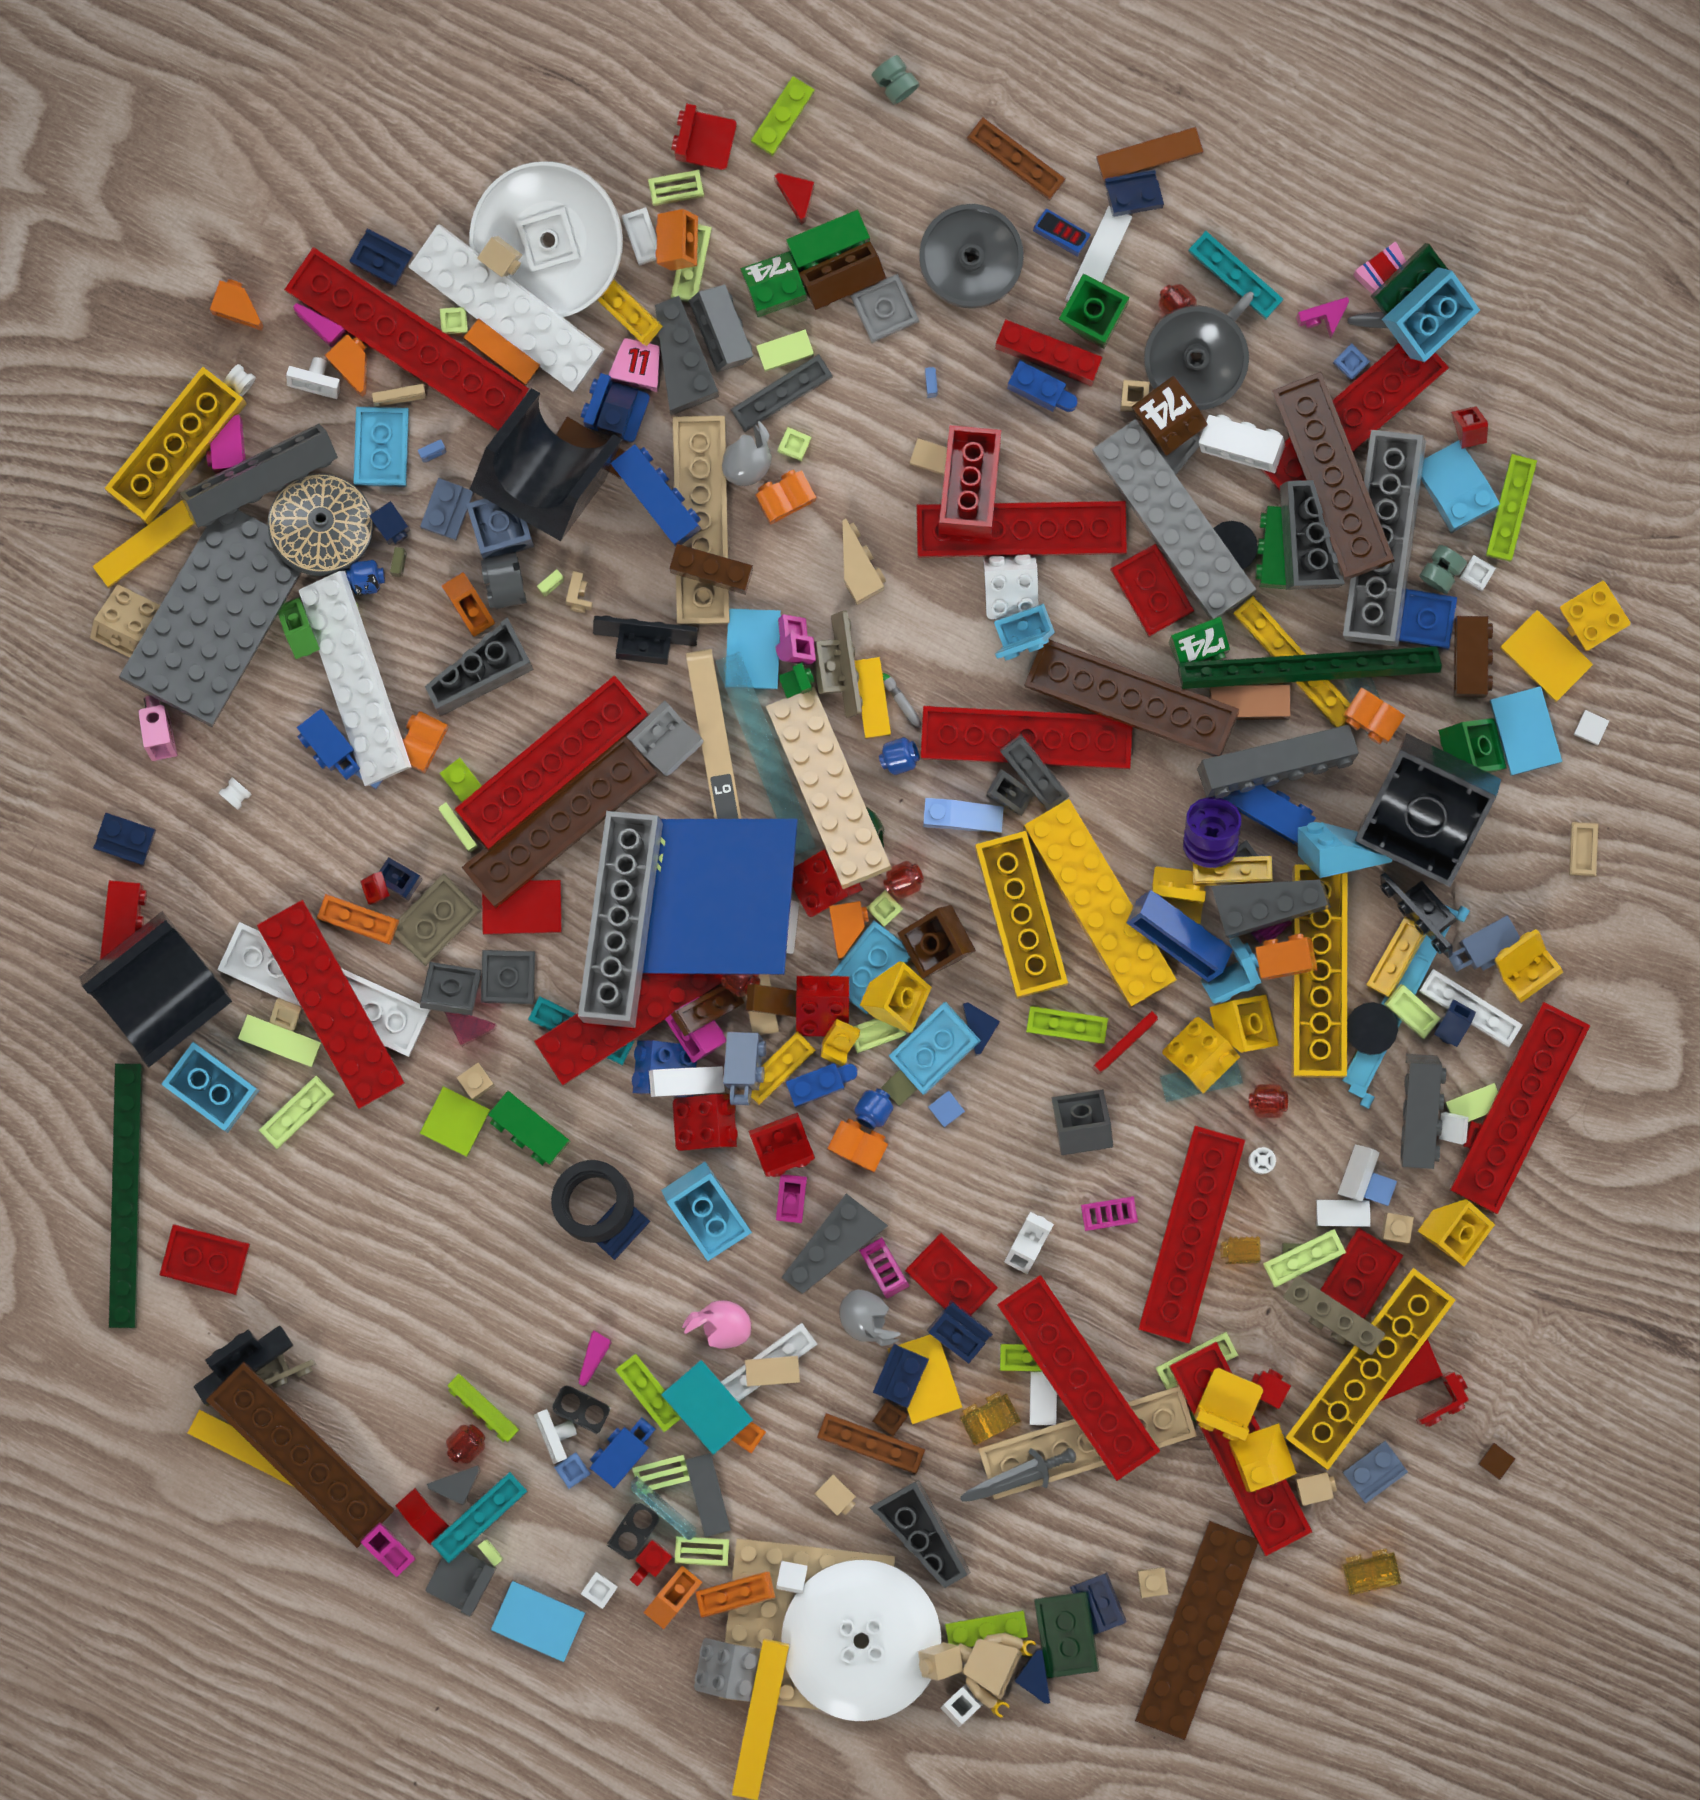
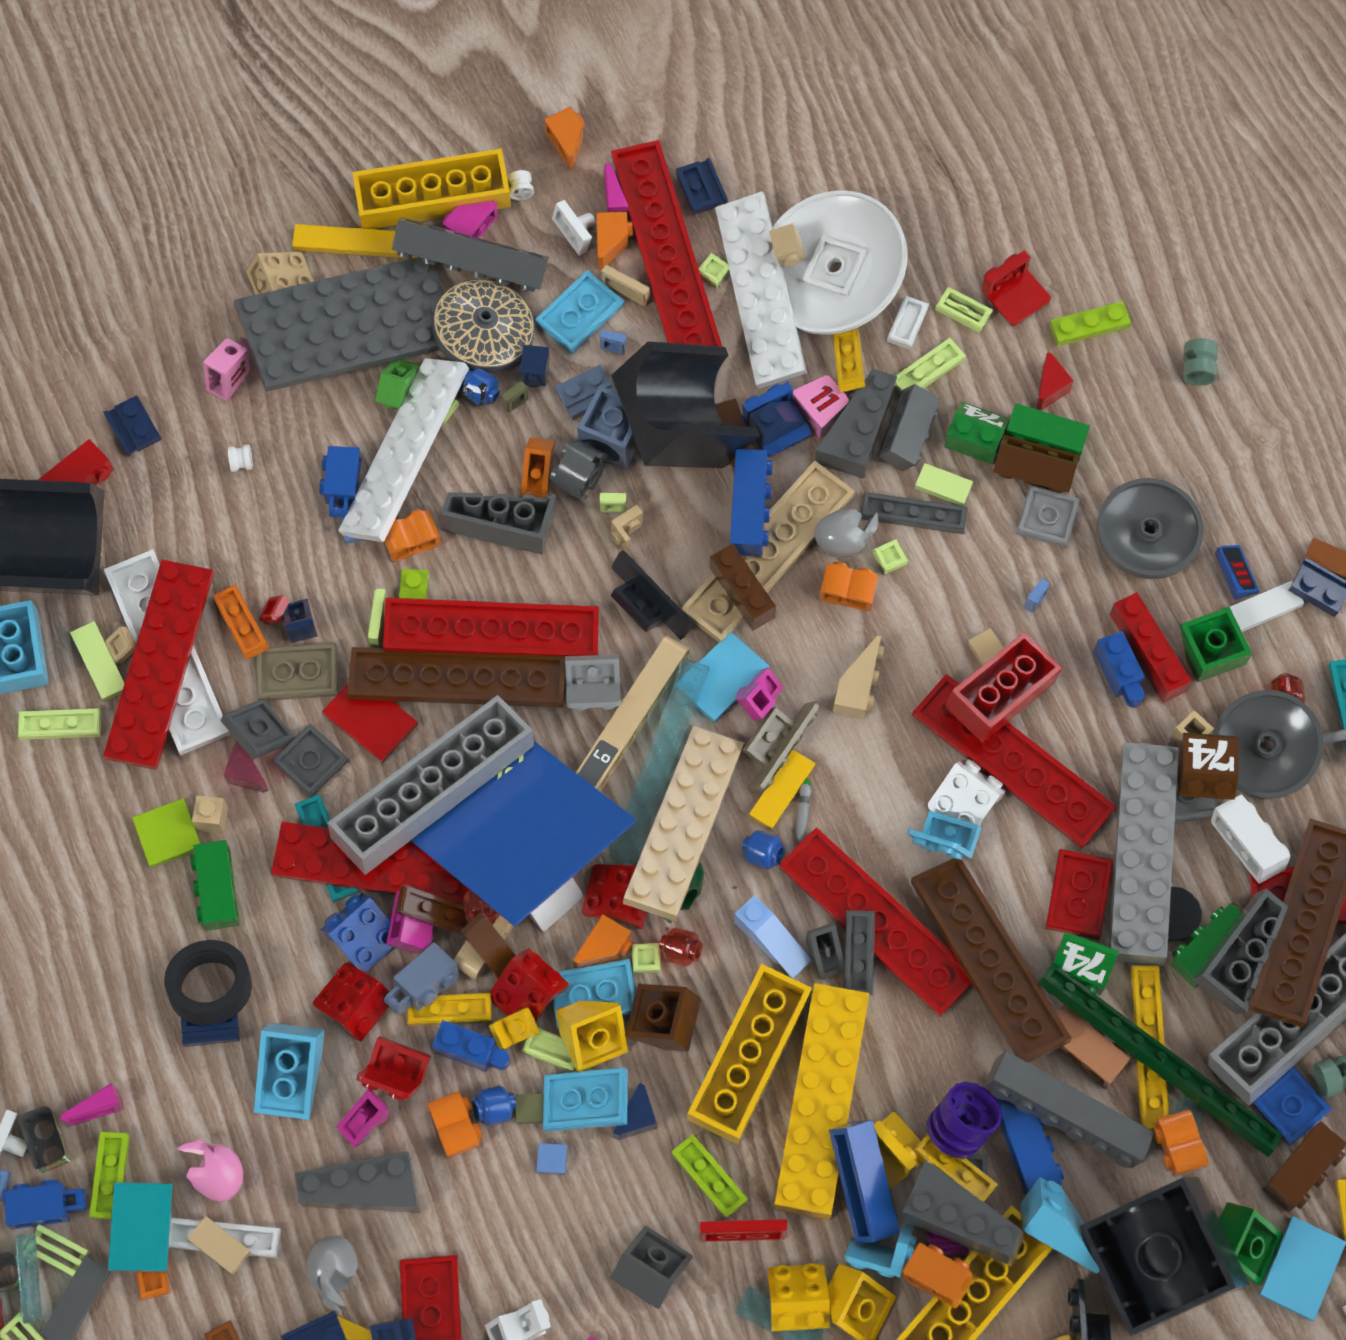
camera: 40 degrees right, 15 degrees down
(502, 352) = (729, 317): orange tile -> none
(677, 239) = (931, 340): orange brick -> none
(686, 1081) = (365, 952): white tile -> none
(796, 681) = (734, 726): green bracket -> none
(894, 1288) = (381, 1267): dark pink slope -> none
(1016, 158) = (1246, 492): dark orange tile -> none

